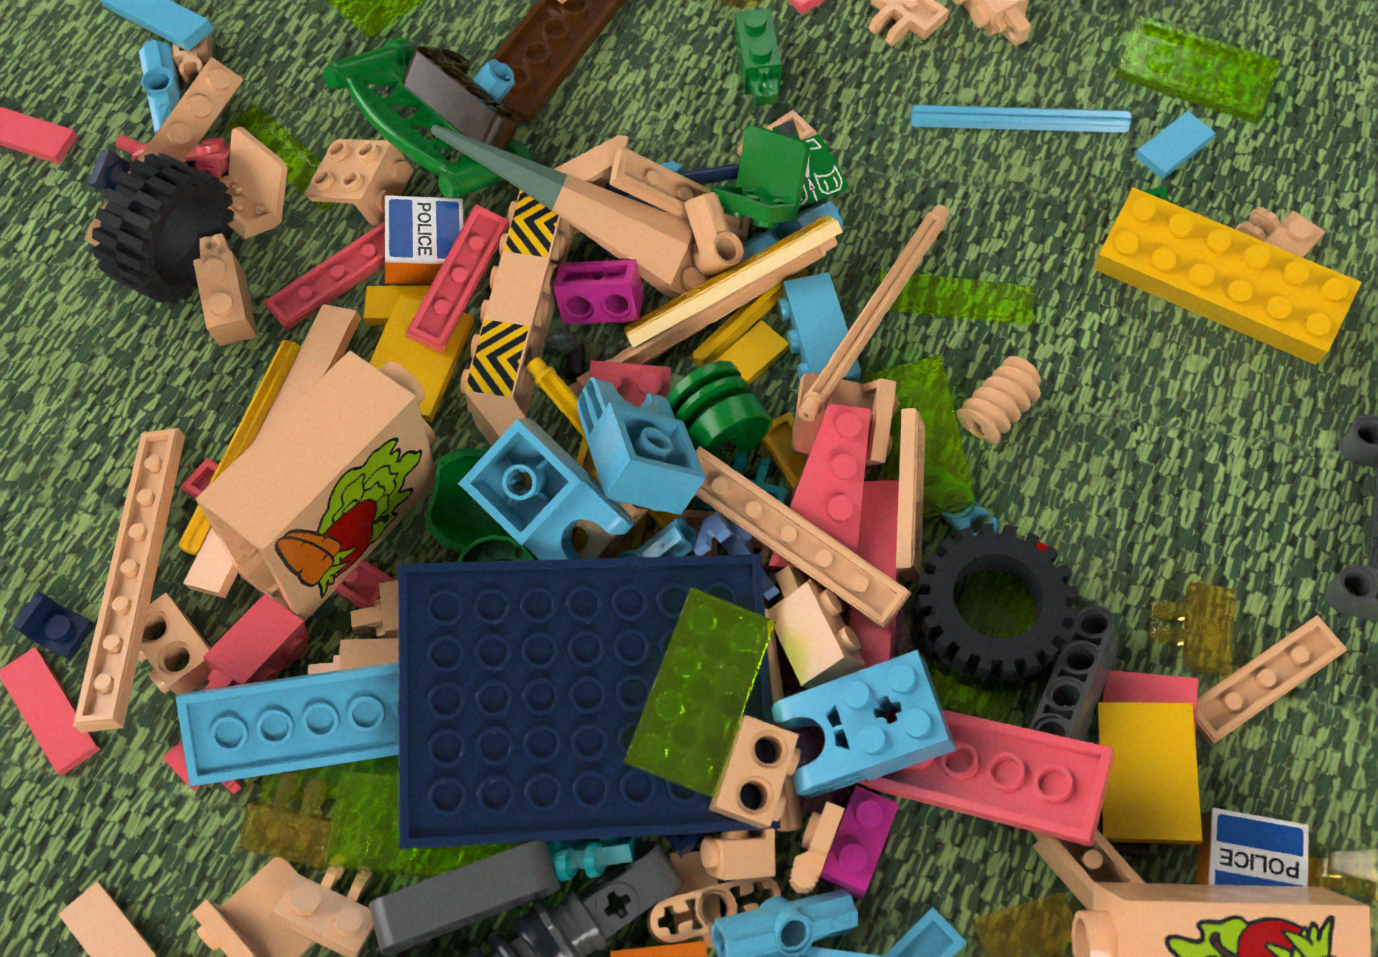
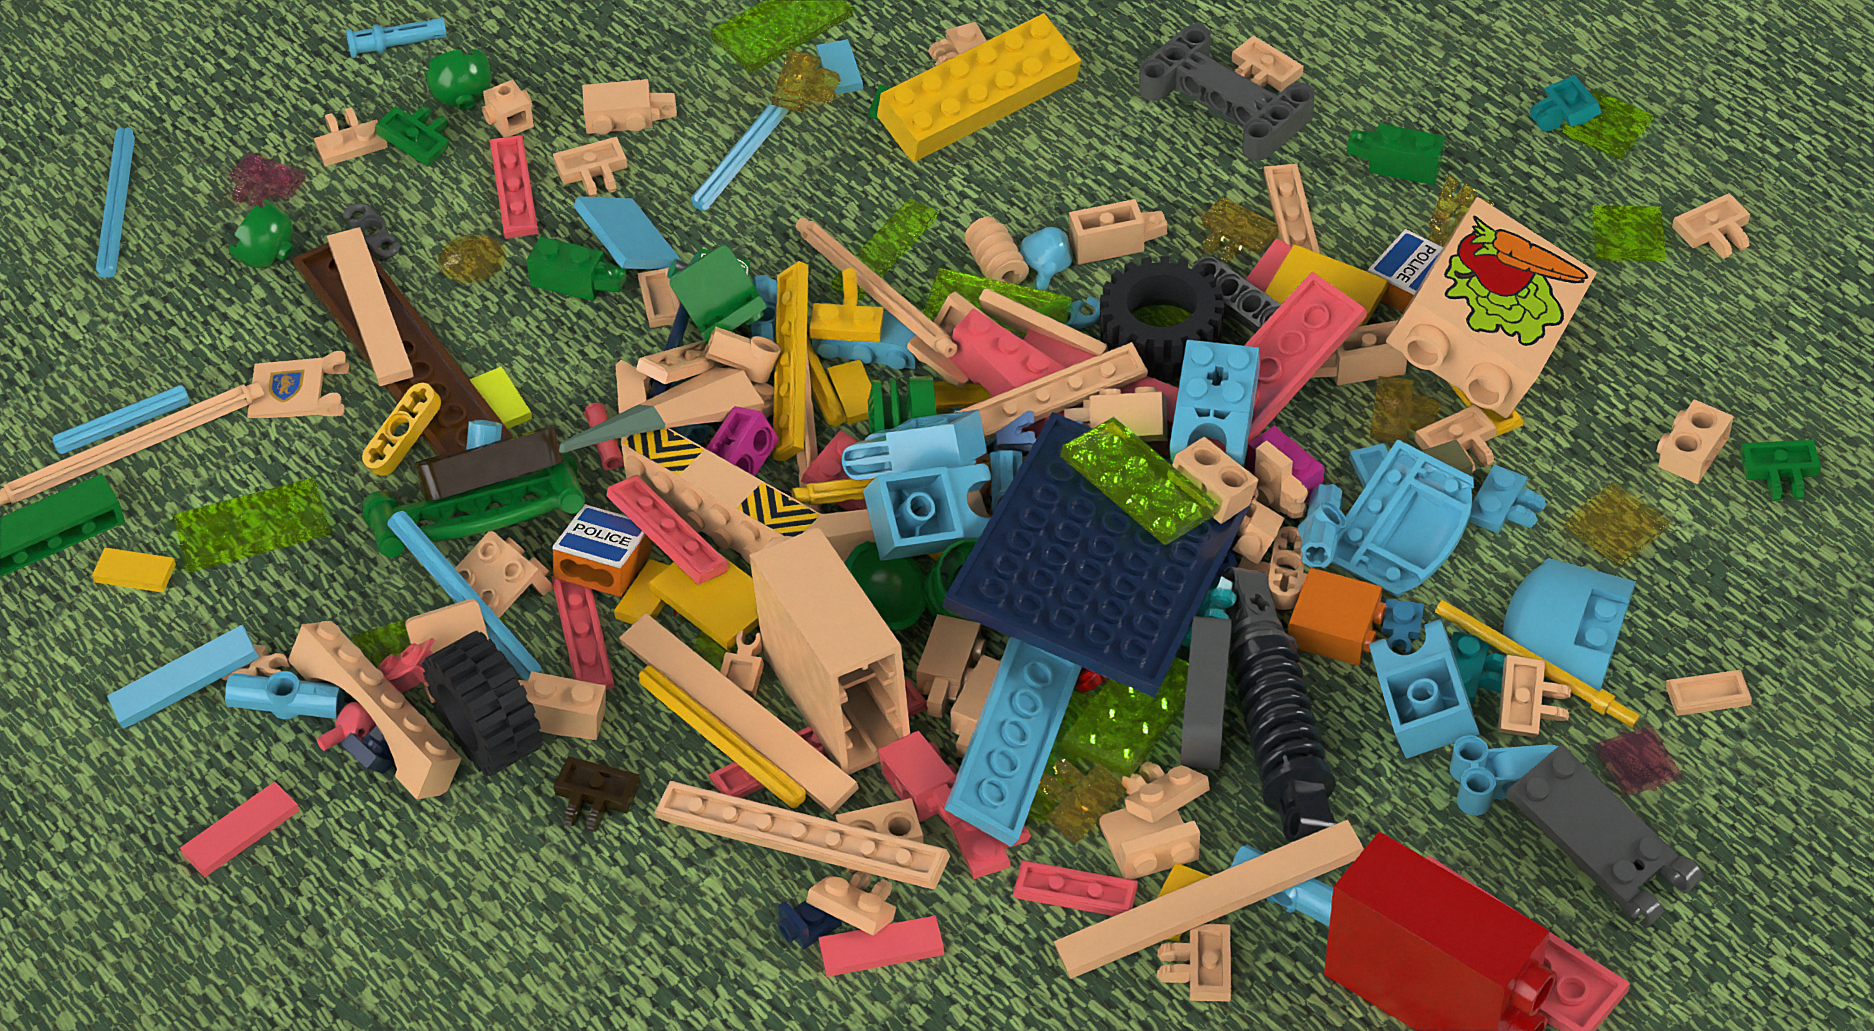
camera: 65 degrees left, 15 degrees down
(68, 659) = (852, 903): none -> light nougat hinge
(153, 369) = (595, 785): none -> dark brown hinge
(180, 870) = (1074, 889): none -> coral tile
(309, 159) = (460, 591): none -> medium azure axle
(510, 23) = (402, 444): none -> yellow beam
(582, 81) = (502, 397): none -> neon yellow tile
(810, 305) = (847, 320): none -> yellow plate
(829, 75) = (626, 232): none -> medium azure tile
(1034, 449) = (1047, 253): none -> medium azure hat
(1105, 499) = (1113, 230): none -> light nougat hinge
(1121, 114) = (802, 81): none -> clear yellow hinge

